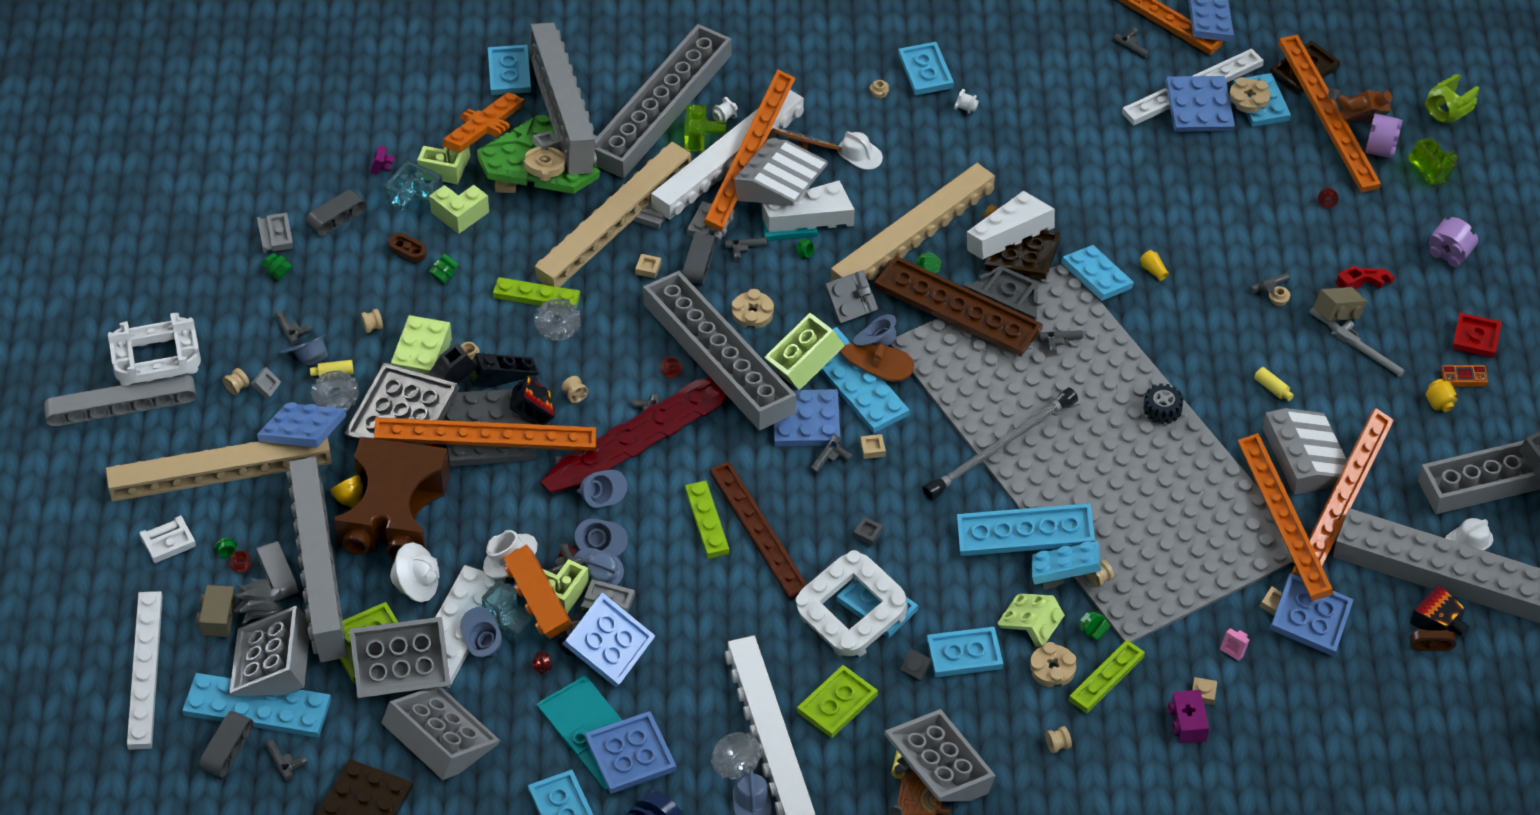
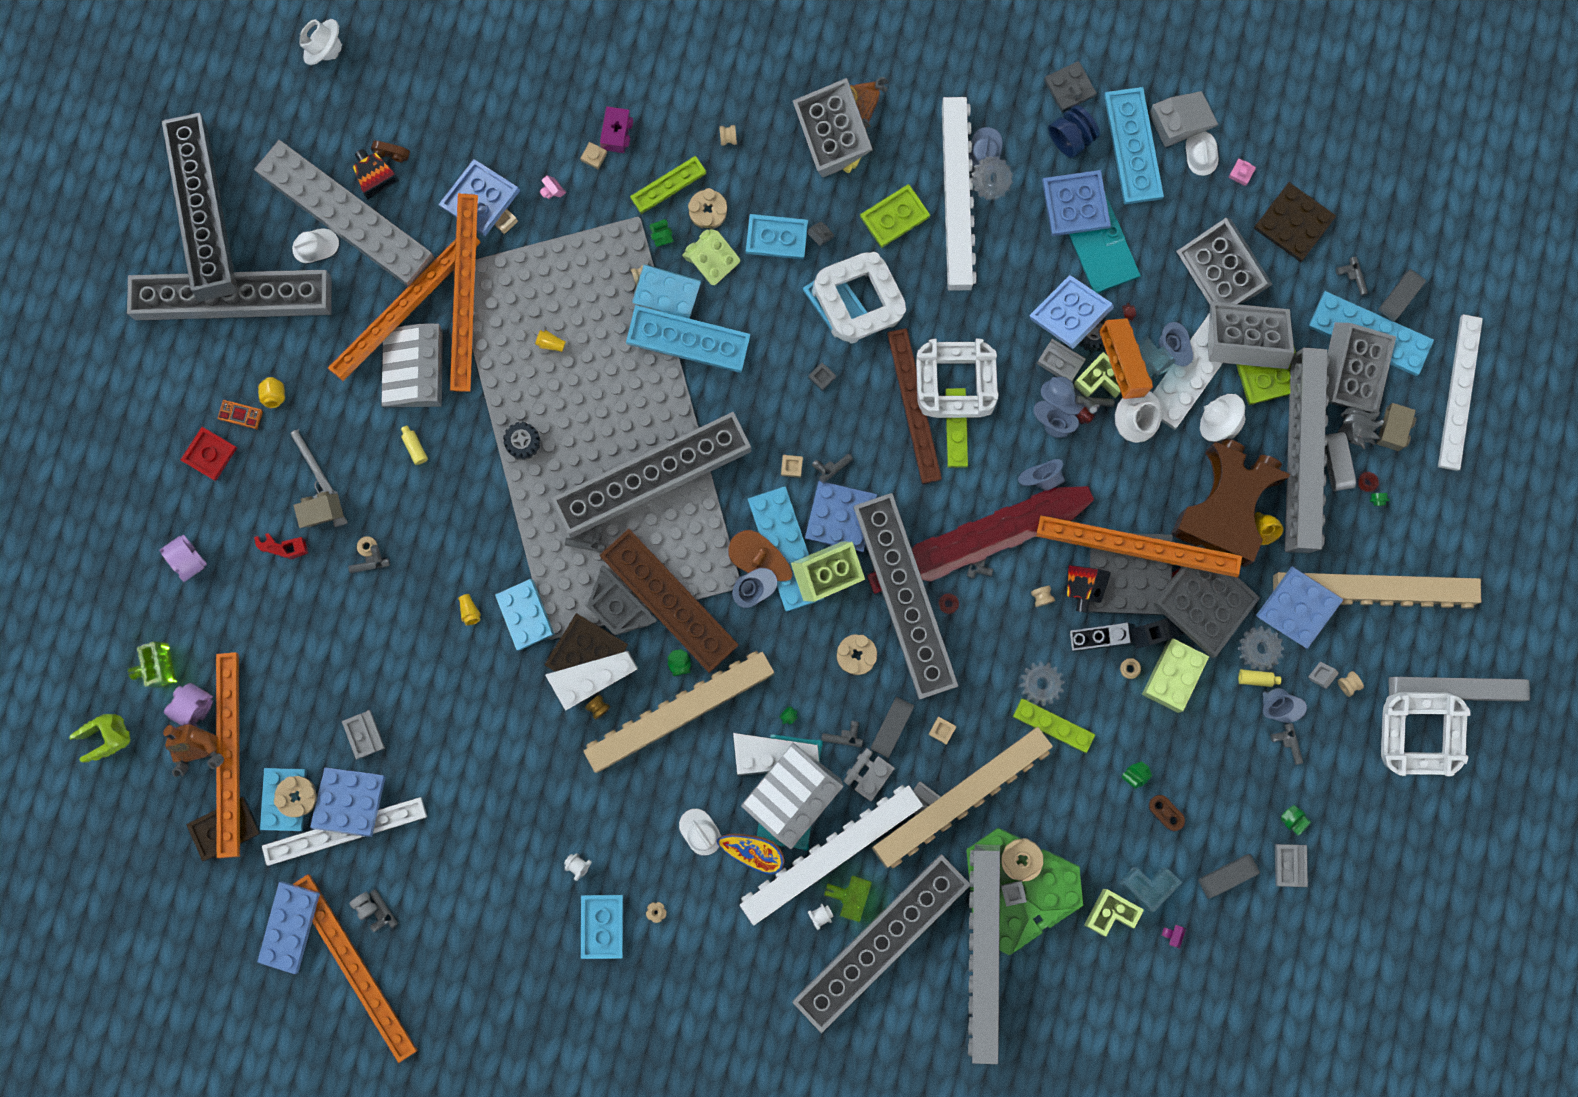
camera: 165 degrees left, 30 degrees up
(169, 543) = (1426, 515): white plate -> none
(371, 320) = (1215, 726): tan wheel -> none
(461, 210) = (1110, 844): yellowish green brick -> none
(481, 122) = (1066, 951): orange hinge -> none
(509, 69) = (1023, 1034): medium azure plate -> none
(713, 523) = (956, 352): none -> white plate
(751, 144) = (811, 842): orange plate -> none
(850, 296) = (764, 637): dark grey hinge -> none
(936, 487) = (750, 406): light grey hose -> none
(1014, 396) = (651, 475): none -> light grey brick
(1150, 40) = (367, 909): none -> light grey wheel
(1173, 494) = (549, 341): none -> yellow cone
(1210, 155) = (363, 734): none -> light grey plate
(1328, 193) = (273, 651): clear red plate -> none

